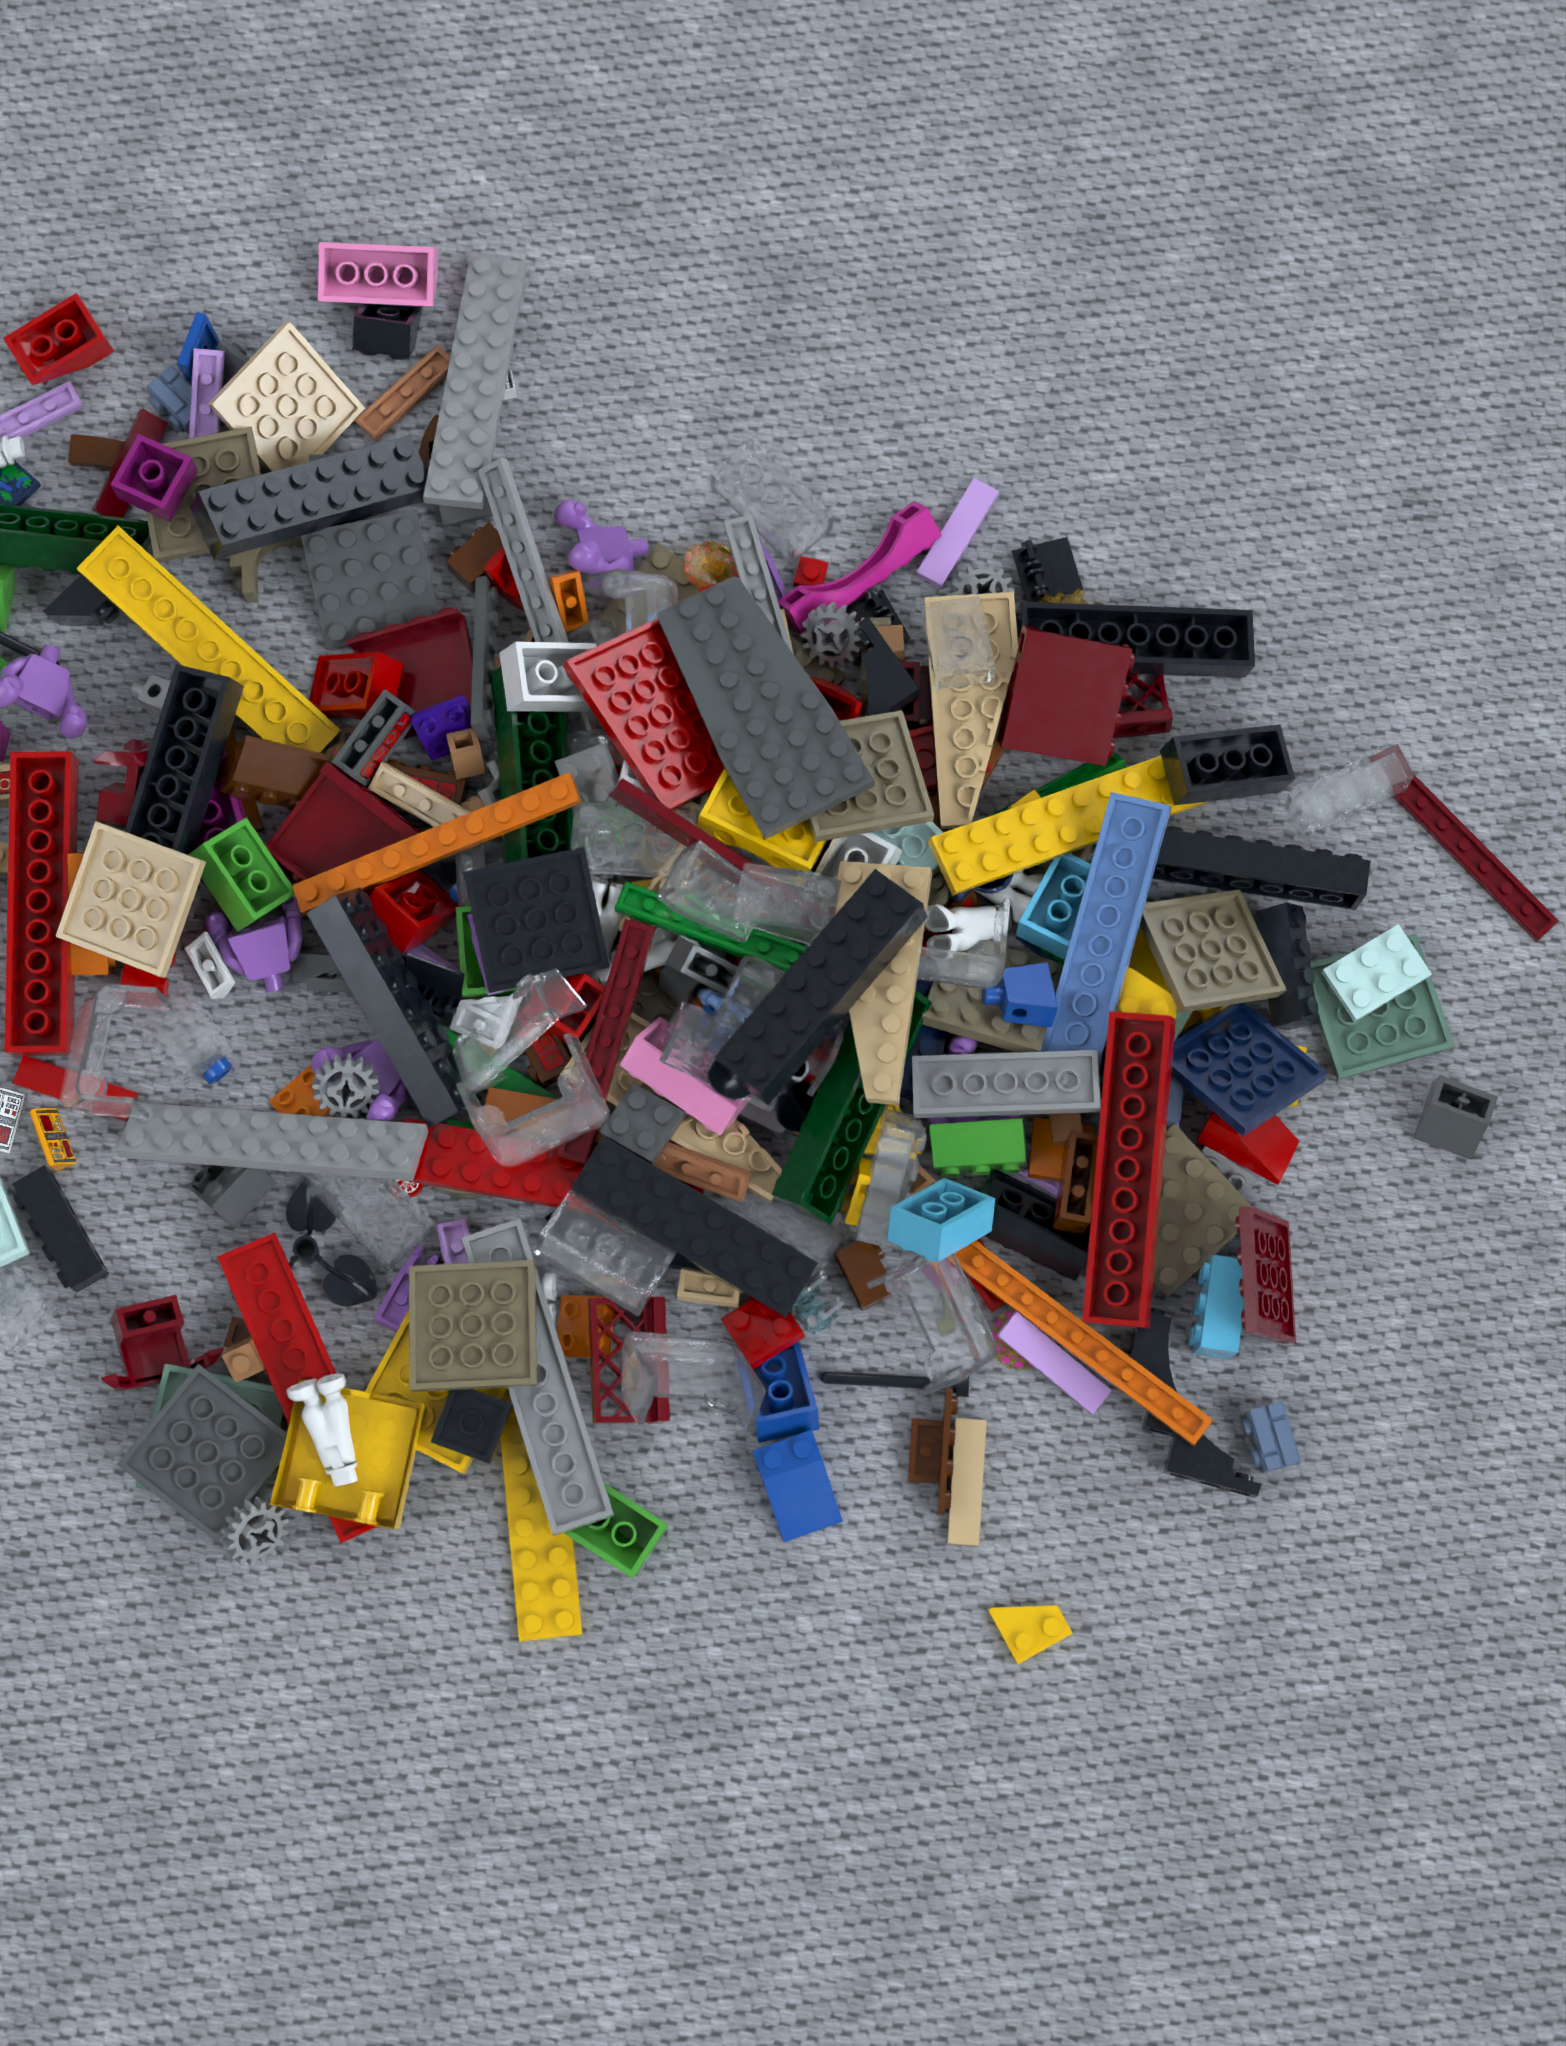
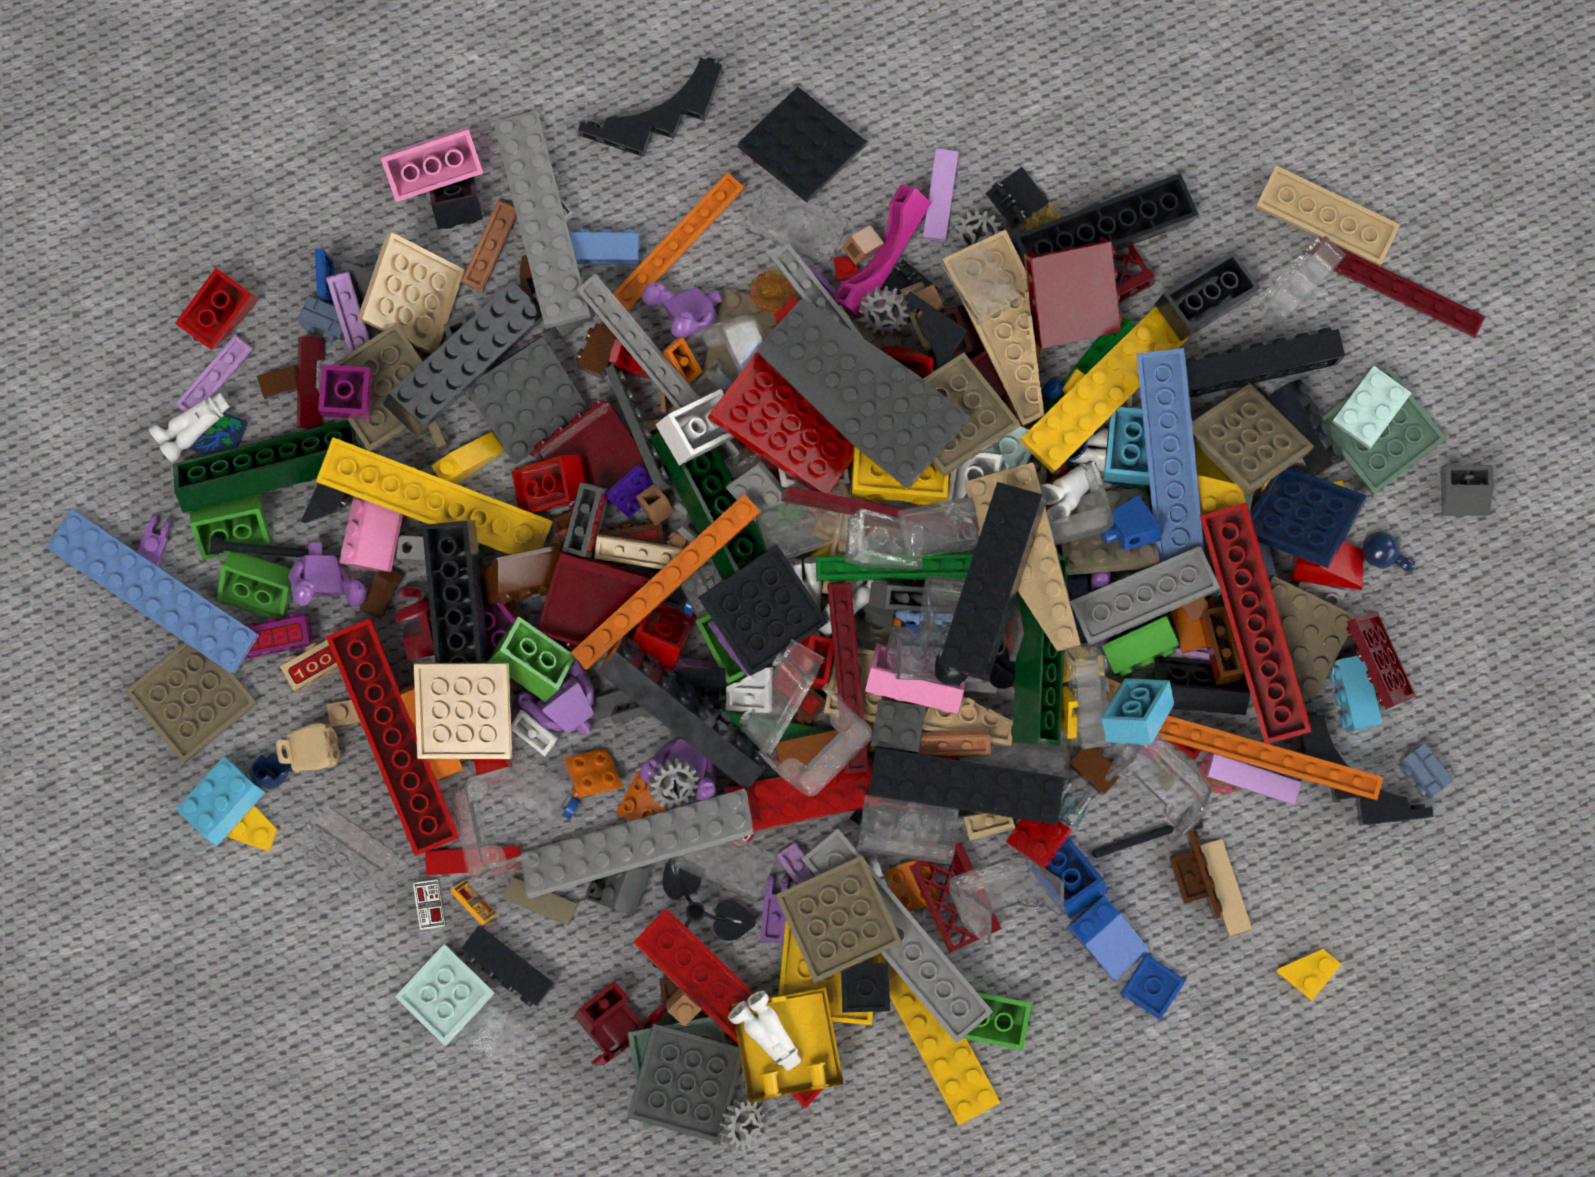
camera: 20 degrees left, 5 degrees up
(106, 734) = (380, 593): none -> reddish brown slope
(118, 664) = (370, 537): none -> bright pink slope
(135, 1172) = (546, 905): none -> dark tan tile
(259, 1040) = (592, 773): none -> orange hinge
(273, 622) = (468, 459): none -> yellow slope
(538, 443) = (605, 247): none -> medium blue brick
(627, 468) = (679, 240): none -> orange plate
(629, 327) = (635, 131): none -> black arch
(816, 412) = (802, 144): none -> black plate
(828, 1568) = (1153, 987): none -> blue tile
(840, 553) = (862, 245): none -> medium nougat brick
(996, 805) = (1052, 390): none -> blue tile
(1324, 1152) = (1383, 551): none -> dark blue hair
(1404, 718) = (1327, 214): none -> tan plate

